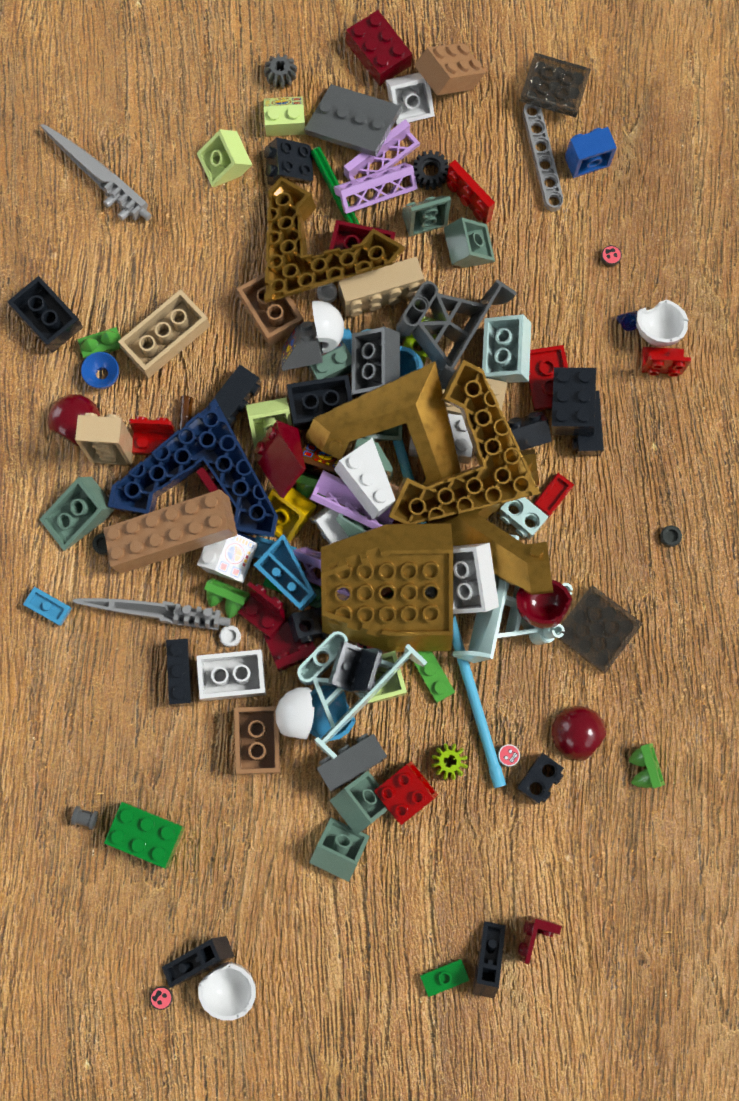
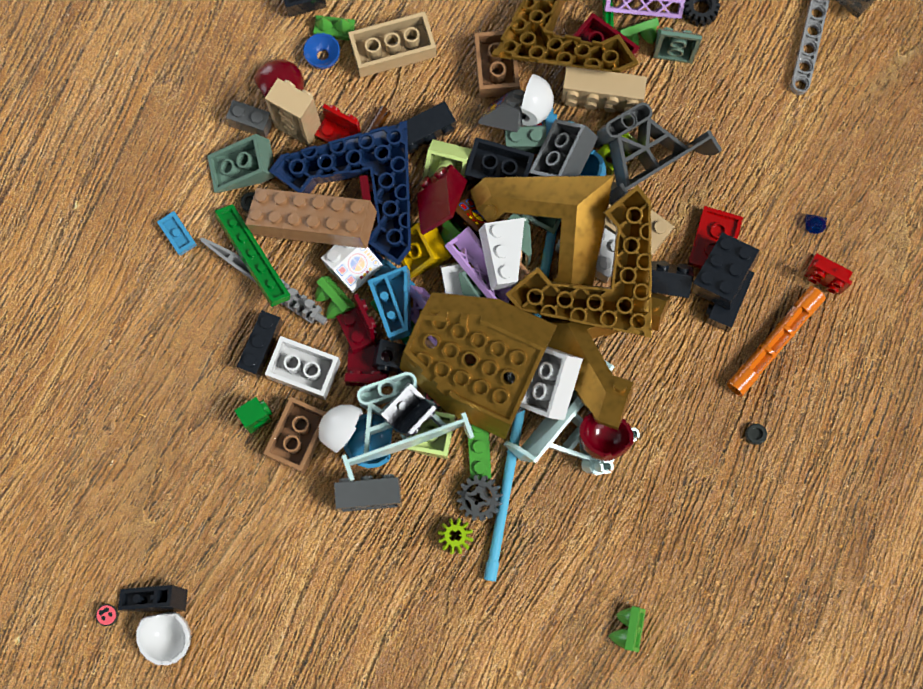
camera: 30 degrees right, 0 degrees up
(63, 466) = (249, 119): none -> dark grey brick
(84, 817) = (118, 429): dark grey bush -> none
(131, 593) = (252, 255): none -> green plate
(144, 835) = (161, 469): green brick -> none
(208, 740) = (254, 414): none -> green brick
(230, 636) = (319, 334): white tile -> none
(327, 293) = (554, 74): white tile -> none
(339, 849) = (321, 564): sand green slope -> none
(359, 803) = (361, 533): sand green slope -> none
(390, 212) = (646, 28): none -> bright green tile
(406, 793) = (403, 544): red bracket -> none
(445, 717) = (482, 489): none -> dark grey gear
(468, 243) = (703, 87): sand green slope -> none
(470, 192) = (725, 42): red plate -> none
(507, 348) = (689, 196): light aqua brick -> none
(508, 755) = (511, 557): tile -> none
(526, 511) = (634, 350): light aqua brick -> none
(535, 775) = (525, 586): black brick -> none
(553, 494) = (667, 346): red tile -> none
(578, 732) = (583, 567): dark red cylinder -> none
(590, 152) = (854, 55): blue brick -> none
(598, 629) = (647, 485): clear smoke plate -> none
(611, 256) = (828, 158): tile -> none
(647, 443) = (776, 340): none -> orange piece
(662, 324) = (843, 240): white cylinder -> none

